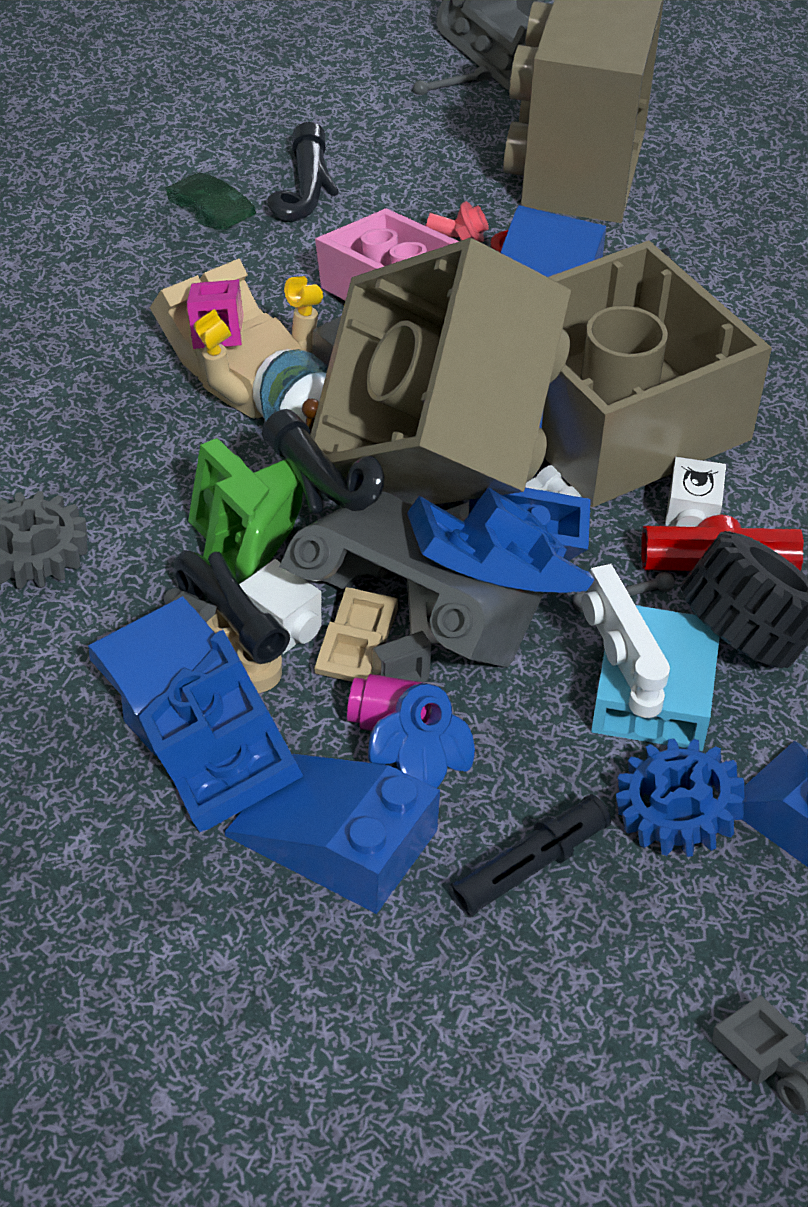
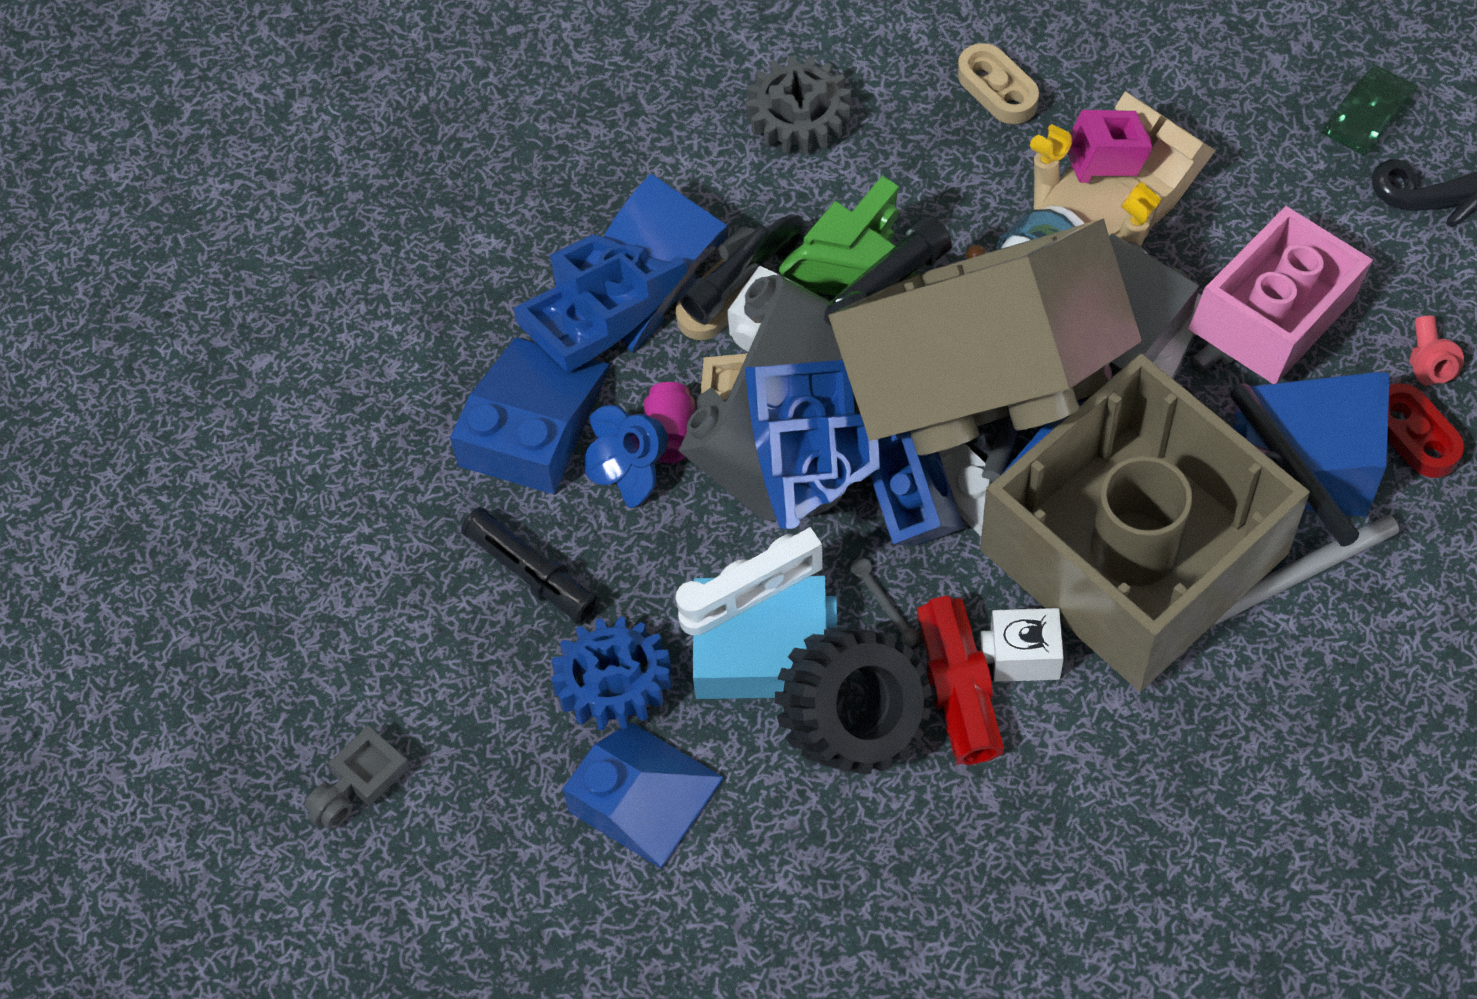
camera: 85 degrees right, 15 degrees up
(72, 401) = (1002, 84): none -> tan plate

